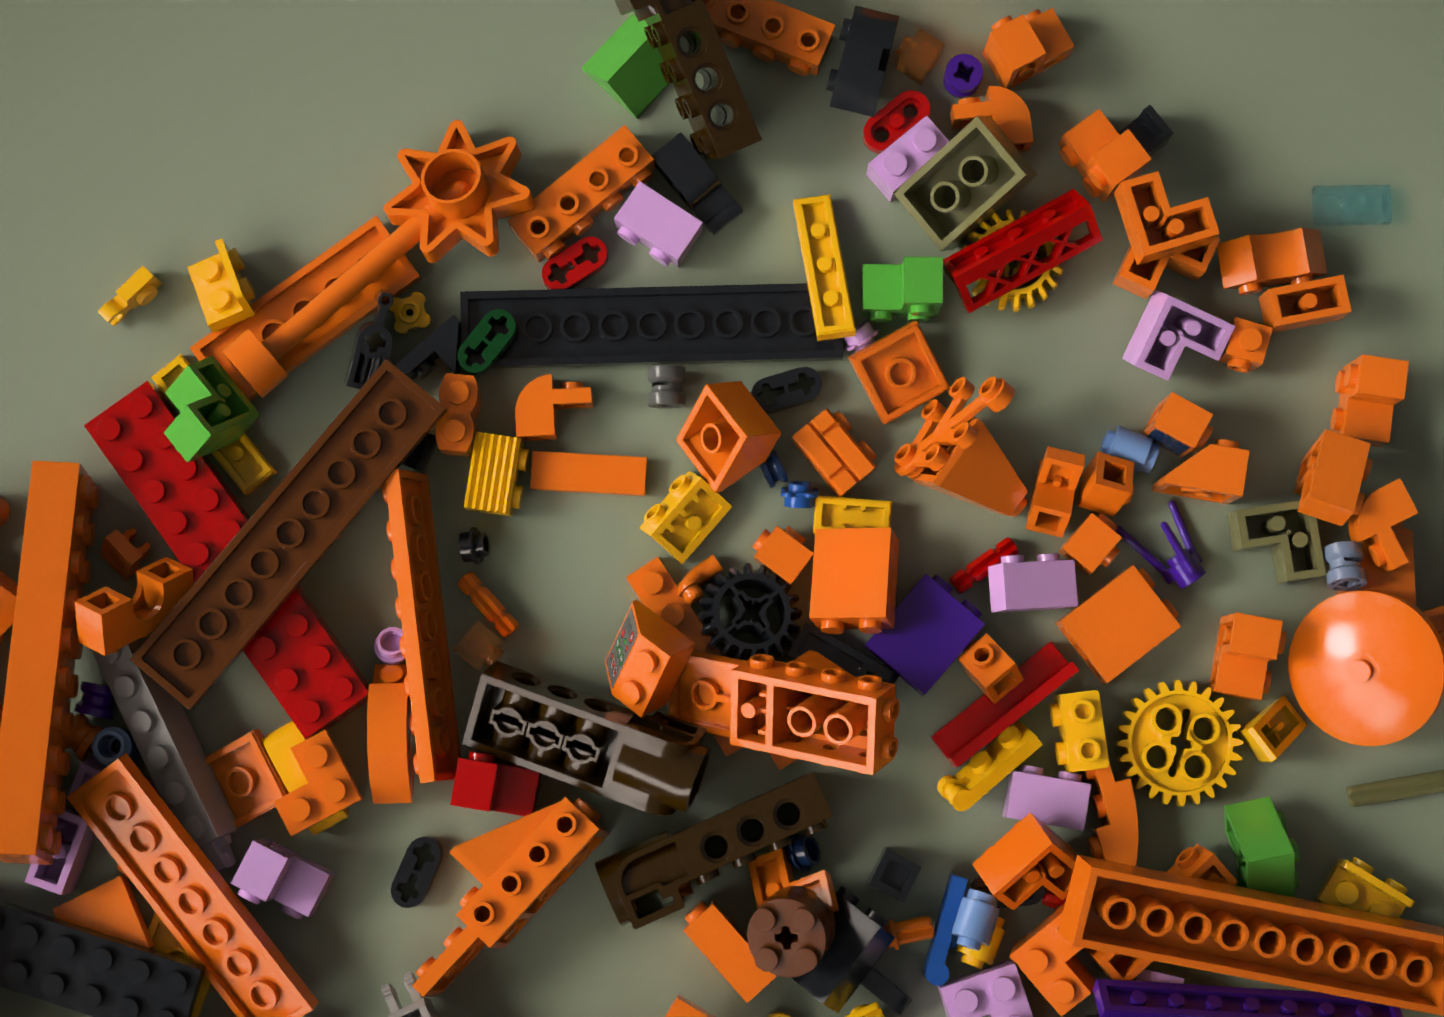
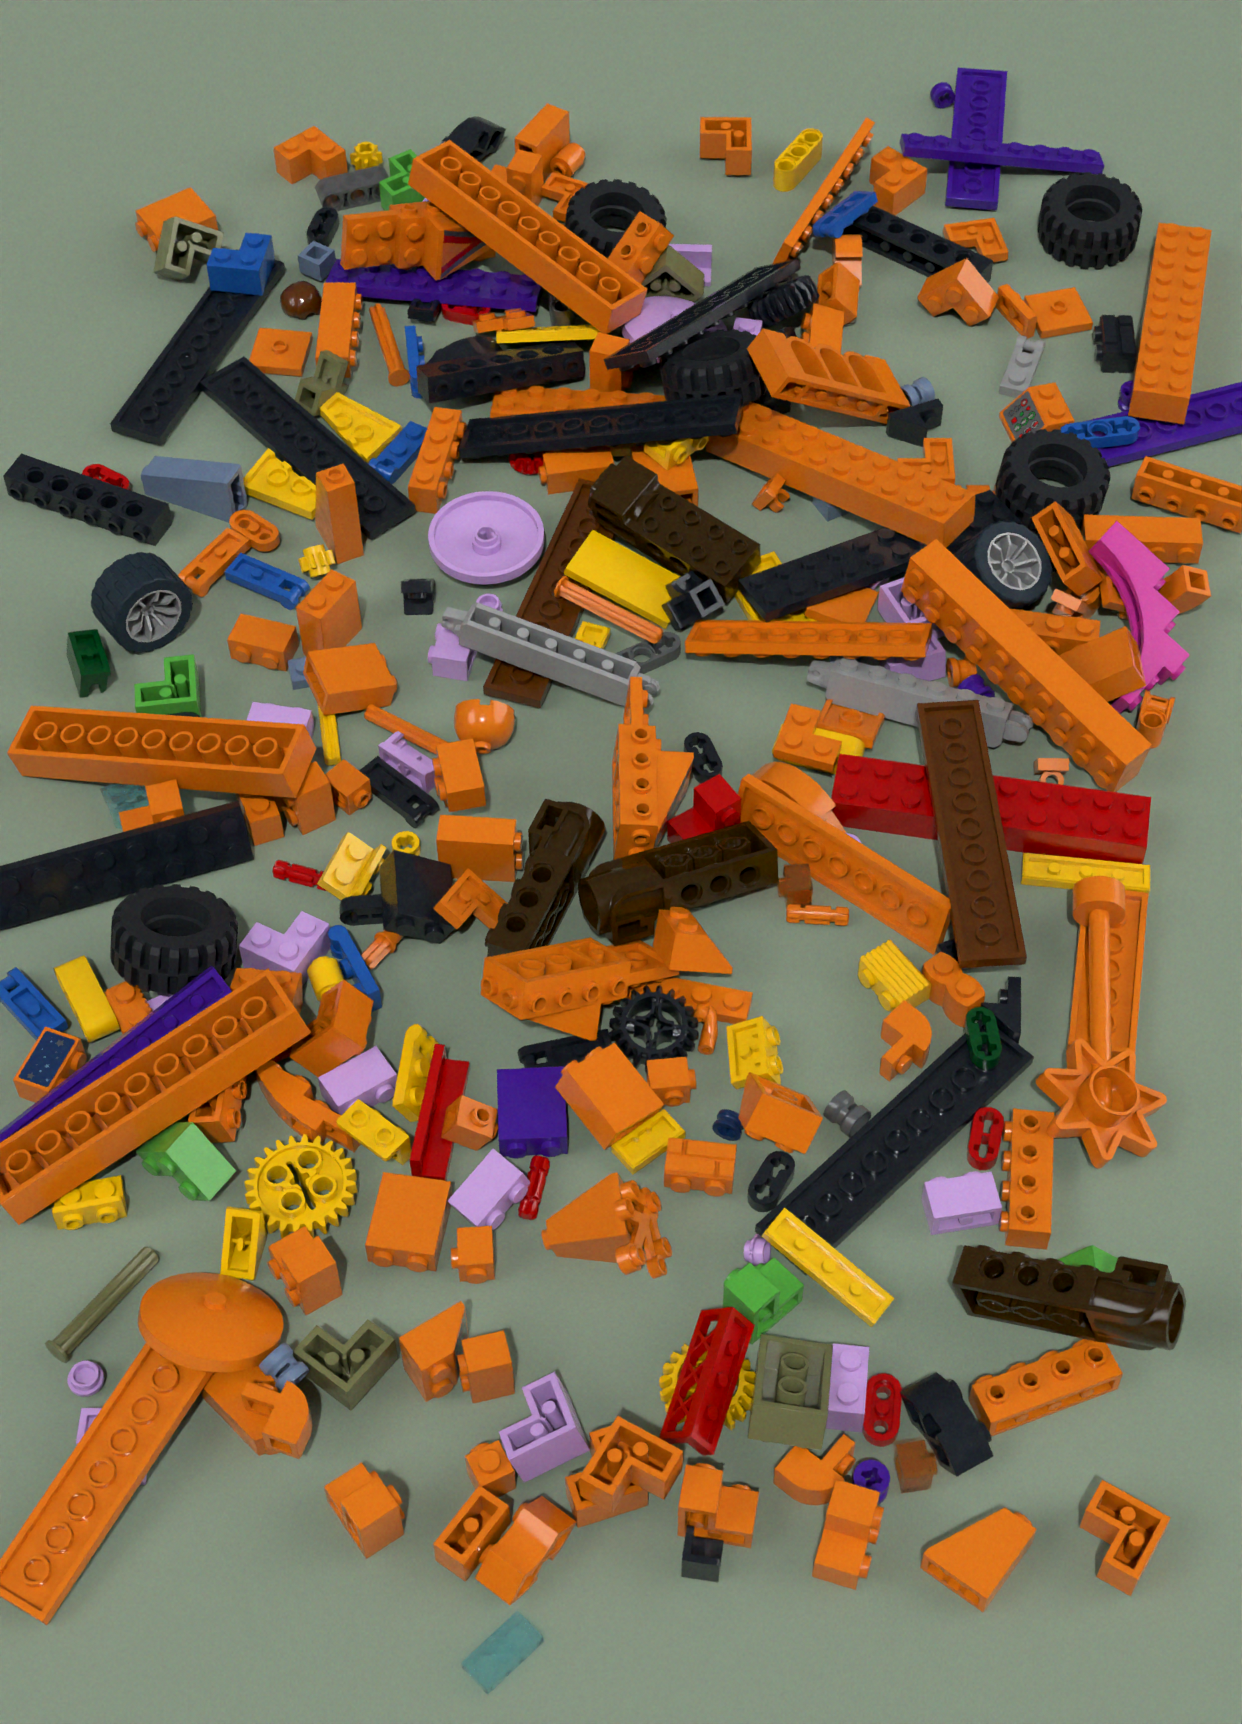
camera: 135 degrees right, 30 degrees down
(105, 741) = (939, 669): medium blue brick -> none
(113, 620) = (1005, 707): orange arch -> none
(136, 291) = (1215, 898): yellow plate -> none
(210, 410) = (1087, 857): bright green brick -> none
(221, 288) = (1170, 938): yellow bracket -> none
(282, 875) = (770, 696): lavender brick -> none
(361, 349) = (1047, 979): black piece -> none
(419, 319) = (1045, 1031): yellow plate -> none
(473, 546) = (861, 933): black plate -> none
(588, 473) = (839, 1031): orange tile -> none
(696, 183) = (947, 1246): black piece -> none
(775, 947) = (450, 864): reddish brown brick -> none
(799, 494) = (696, 1123): blue plate -> none
(803, 852) = (478, 937): dark blue plate -> none
(893, 874) = (417, 962): black panel -> none
(899, 372) = (708, 1249): orange plate -> none
(976, 919) = (340, 965): medium blue brick -> none
(1054, 491) = (530, 1261): orange brick -> none
(1106, 484) = (499, 1293): orange brick -> none
(1132, 447) = (516, 1330): medium blue brick -> none
(1184, 565) = (399, 1295): dark purple plant -> none
(1332, 477) = (344, 1412): orange brick -> none

